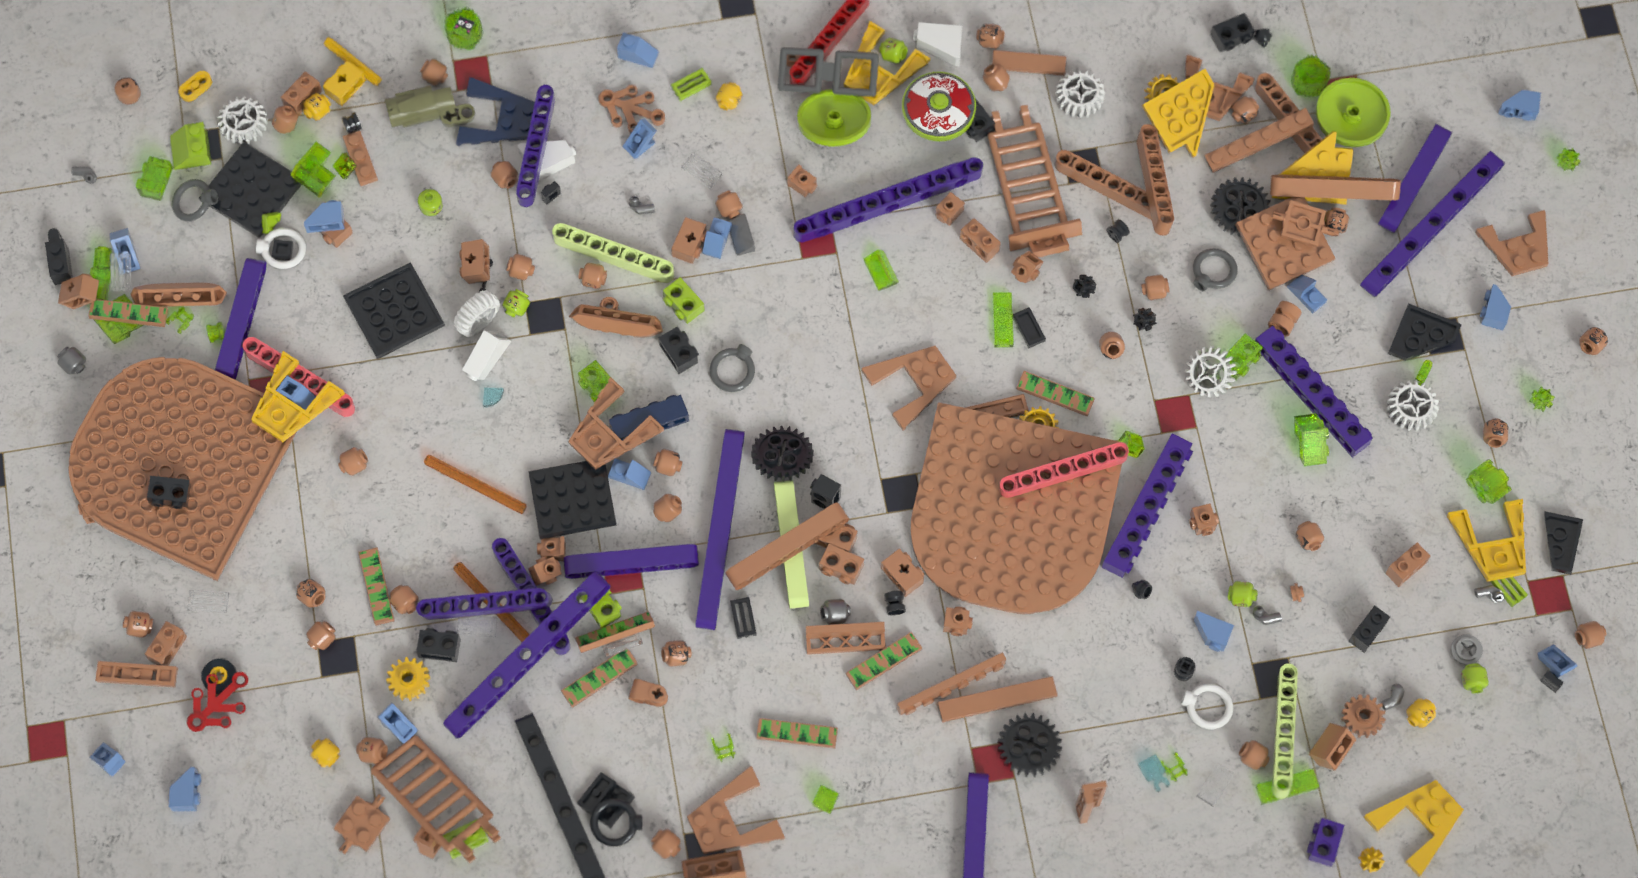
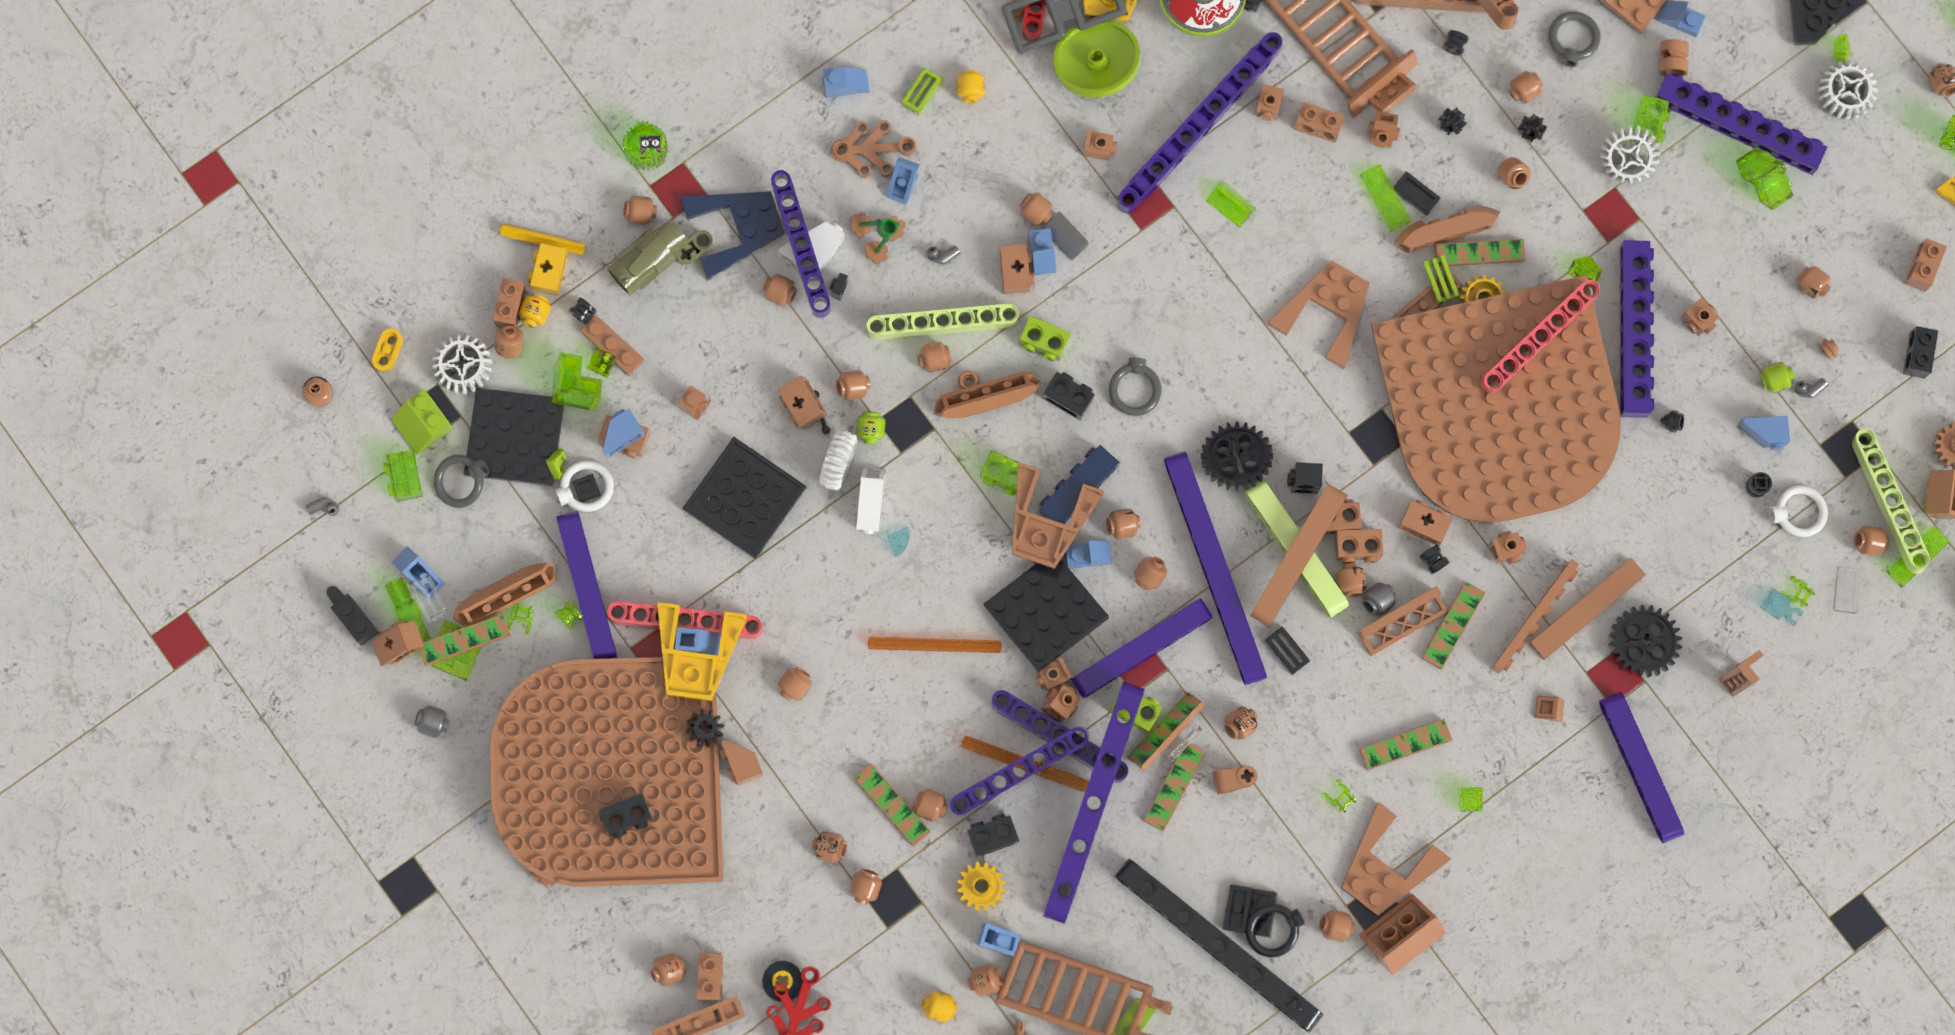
camera: 30 degrees left, 10 degrees up
(257, 461) = (709, 722): none -> black gear
(281, 500) = (742, 762): none -> nougat slope
(395, 224) = (693, 403): none -> nougat brick
(430, 202) = (718, 359): lime head -> none
(605, 164) = (887, 228): none -> nougat plant
(820, 587) = (1351, 580): none -> nougat head
(927, 761) = (1549, 708): none -> nougat slope
(1014, 382) = (1426, 264): none -> lime tile
(1038, 364) = (1422, 236): none -> nougat brick

